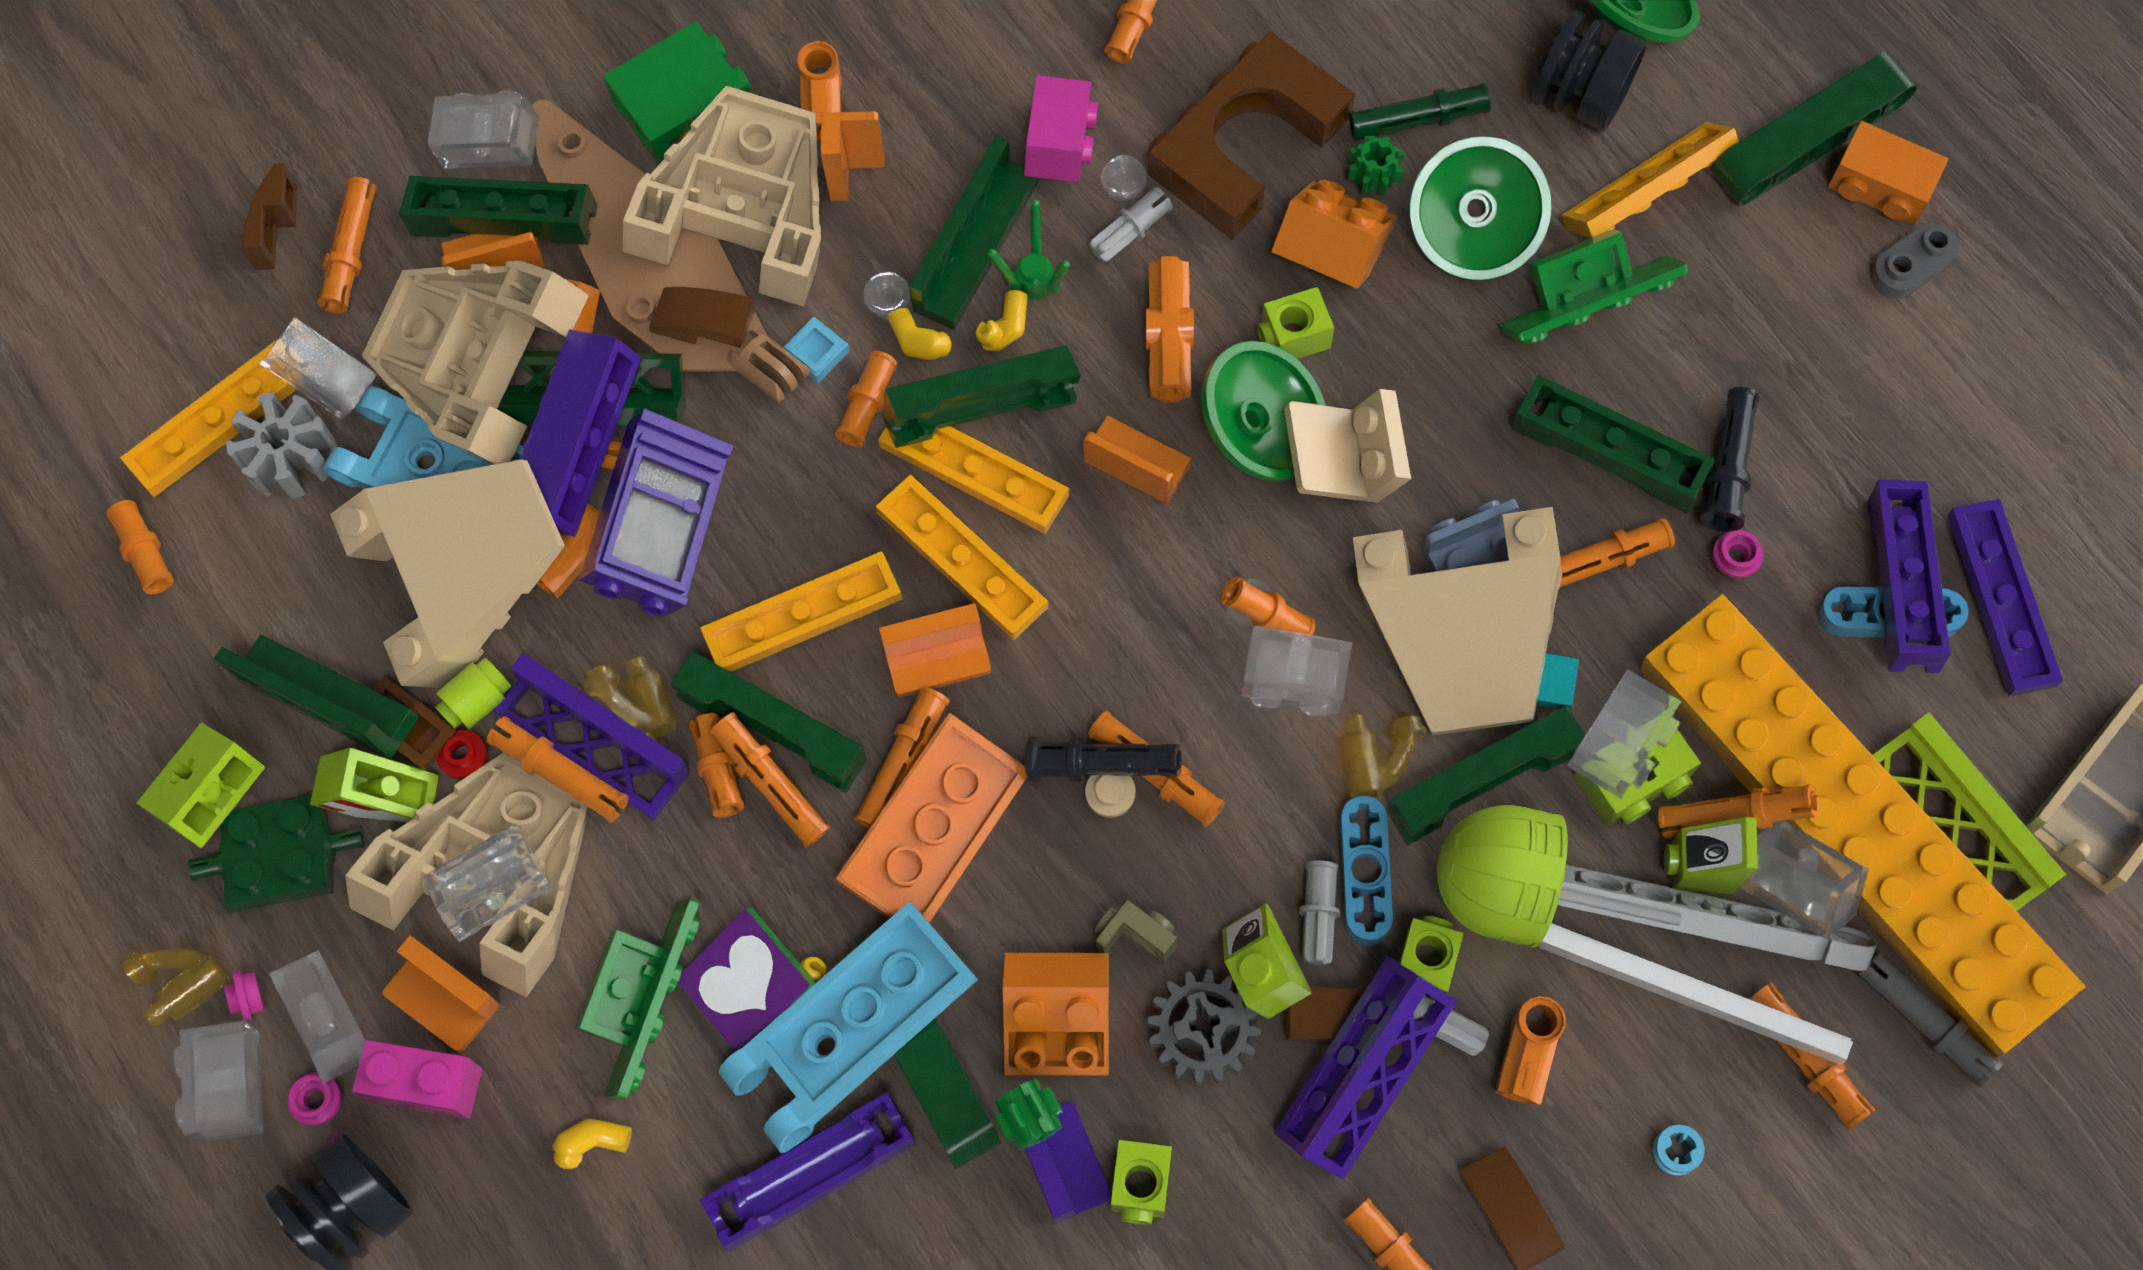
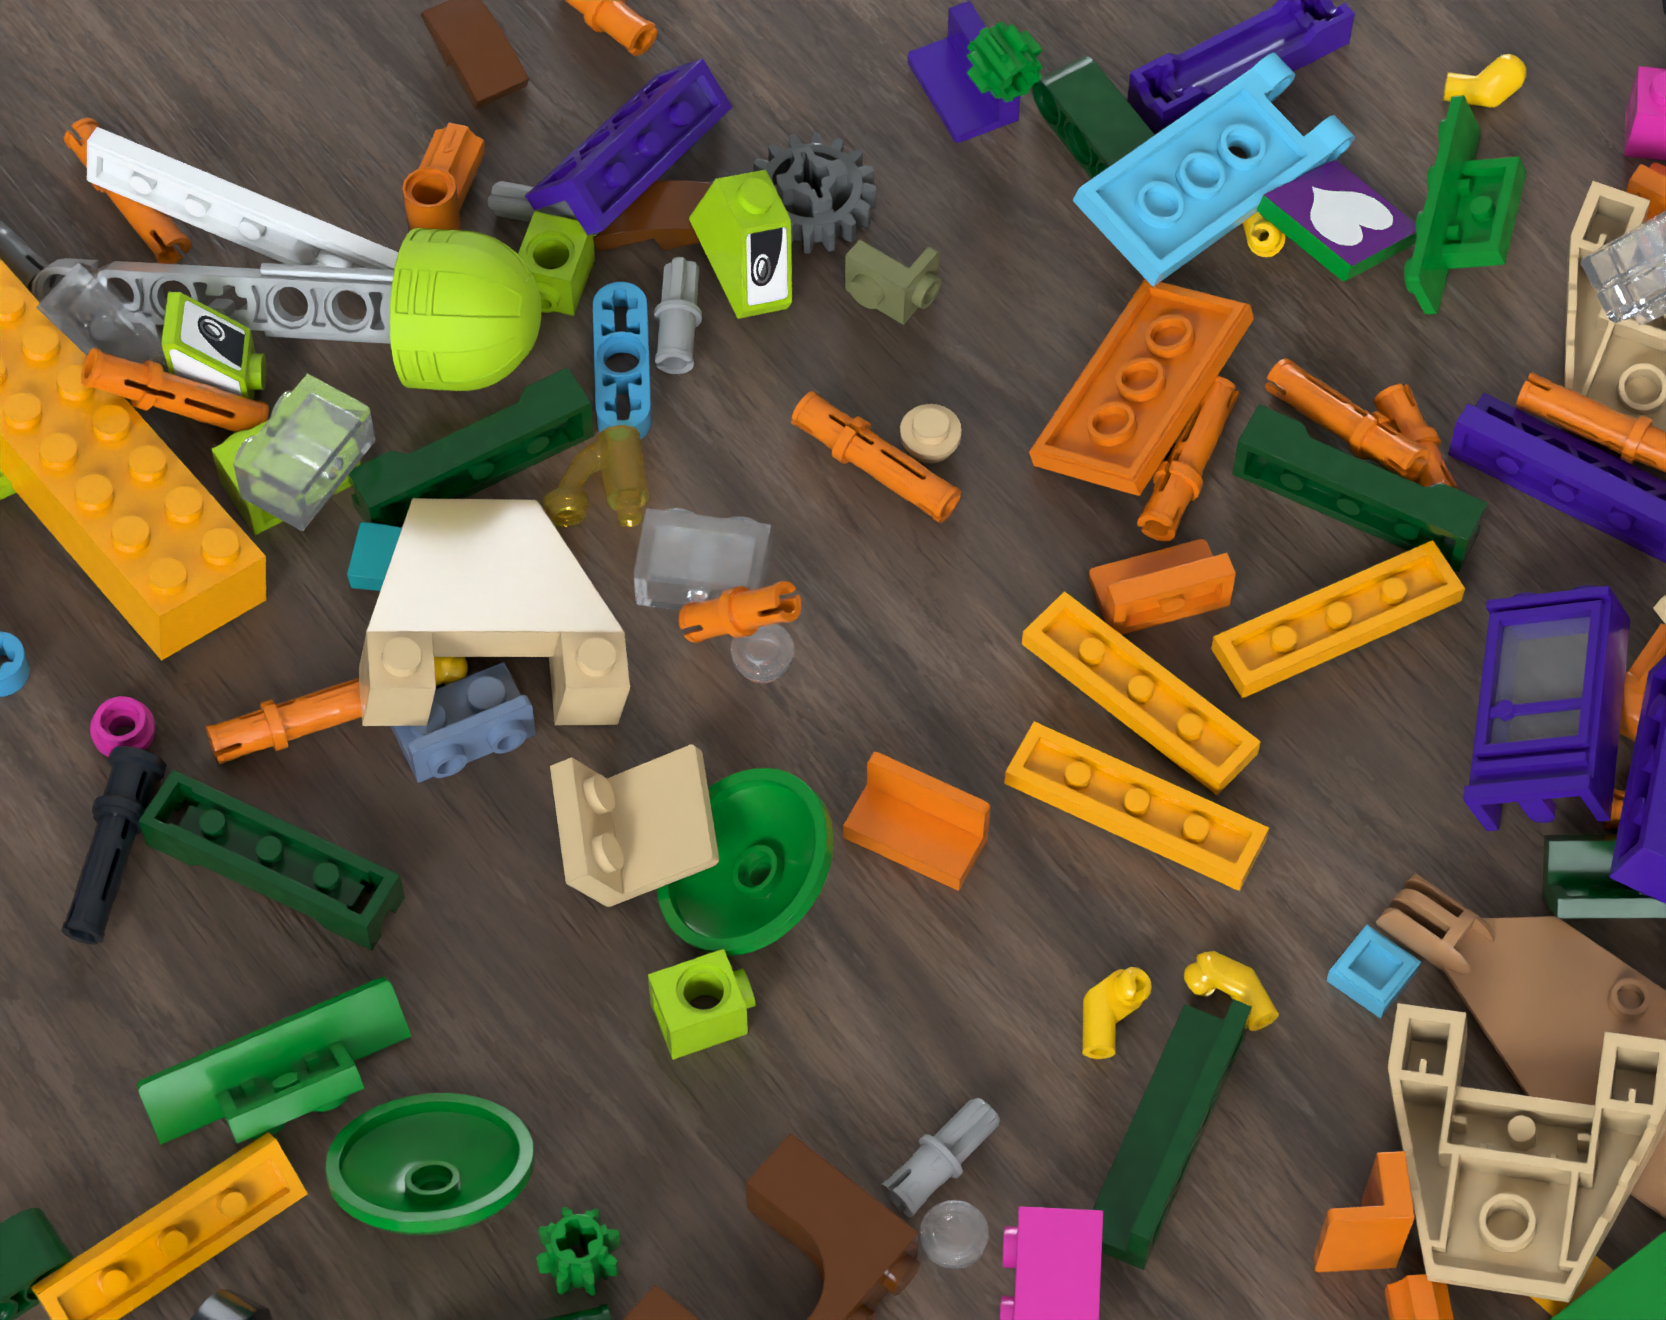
camera: 175 degrees right, 10 degrees down
(649, 705) = (1515, 516): clear yellow plant -> none
(702, 312) = (1539, 968): reddish brown slope -> none
(866, 399) = (1292, 894): orange pin -> none
(886, 293) = (1283, 1047): clear plate -> none
(1033, 381) = (1058, 907): dark green piece -> none
(1034, 271) = (1076, 1070): green plant -> none
(1056, 1014) = (981, 202): orange slope -> none
(1079, 759) = (975, 443): black pin -> none
(1147, 1158) = (876, 56): lime brick -> none
(1169, 330) = (878, 999): orange piece -> none
(1334, 232) = (640, 1145): orange slope -> none
(1692, 1158) = (283, 92): medium azure bush -> none

